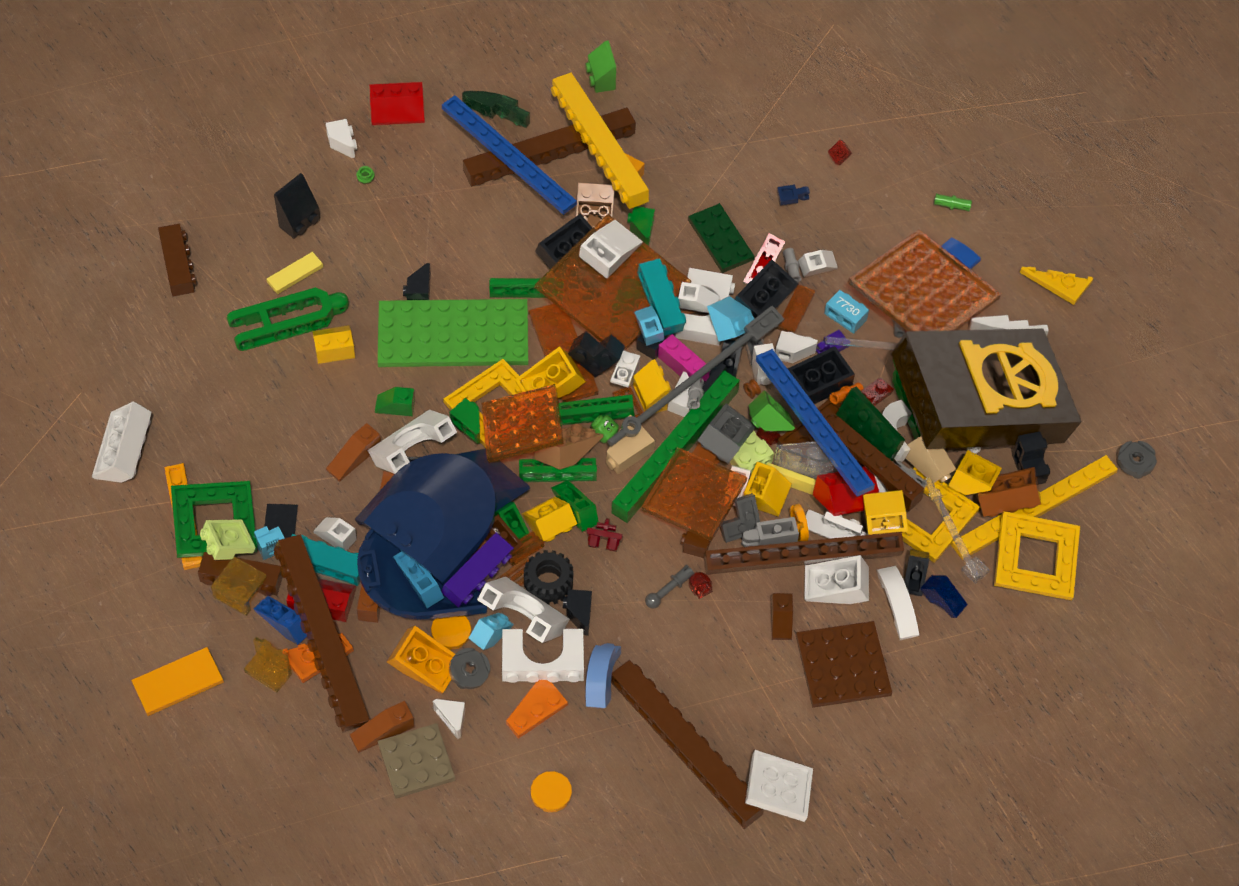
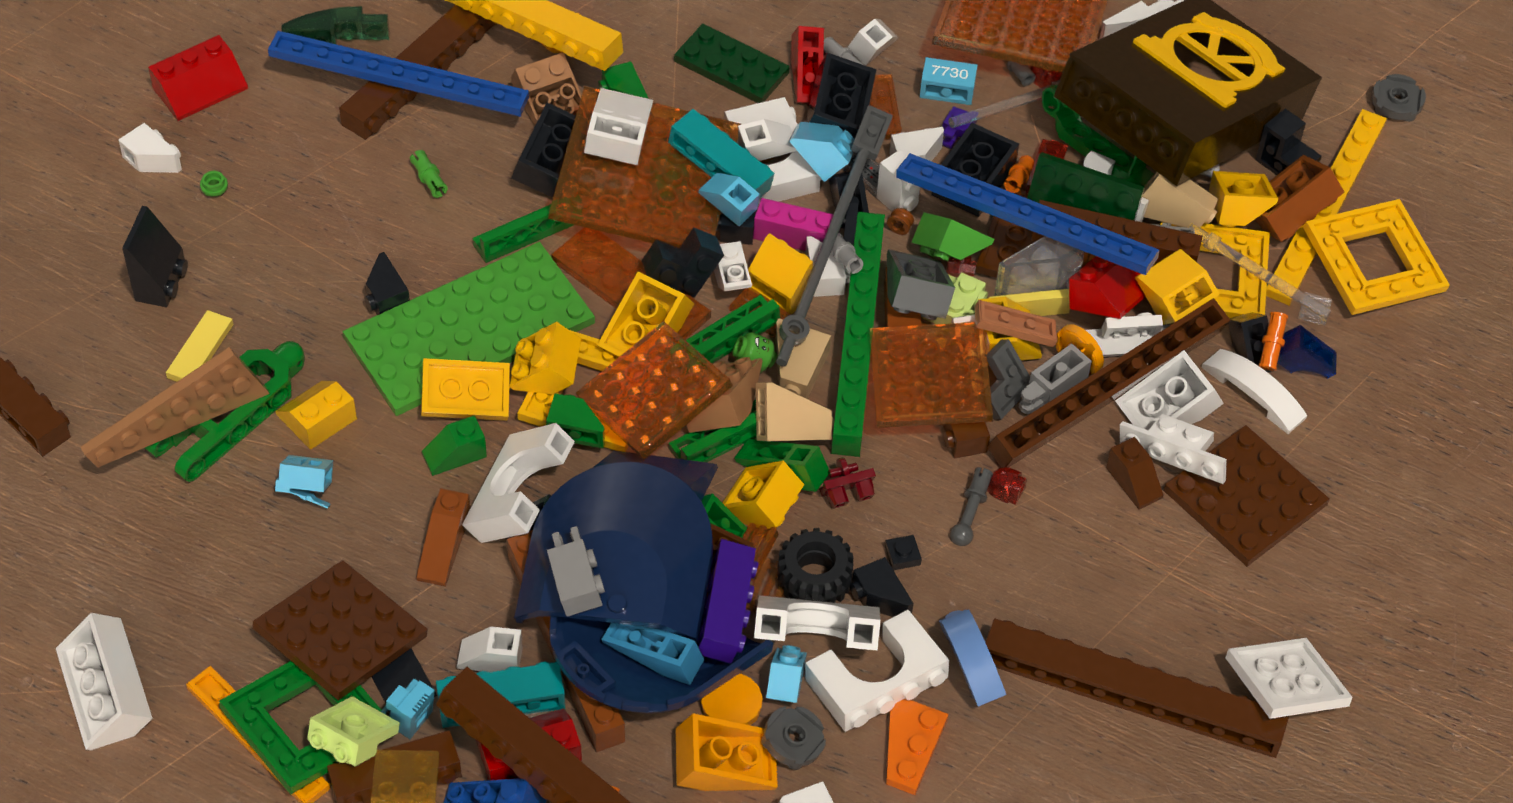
camera: 30 degrees left, 5 degrees down
(260, 303) = (198, 397): none -> medium nougat wing
(263, 477) = (340, 629): none -> reddish brown plate
(300, 379) = (302, 474): none -> medium azure piece
(390, 510) = (574, 574): none -> light grey hinge
(422, 370) = (465, 389): none -> yellow plate
(476, 375) = (546, 360): none -> yellow slope
(491, 225) = (428, 173): none -> bright green pin
(594, 479) = (789, 416): none -> tan slope
(610, 593) = (903, 552): none -> black plate
(767, 487) = (1015, 323): none -> nougat tile
(817, 610) = (1179, 446): none -> white bracket
(924, 577) = (1273, 341): none -> orange pin

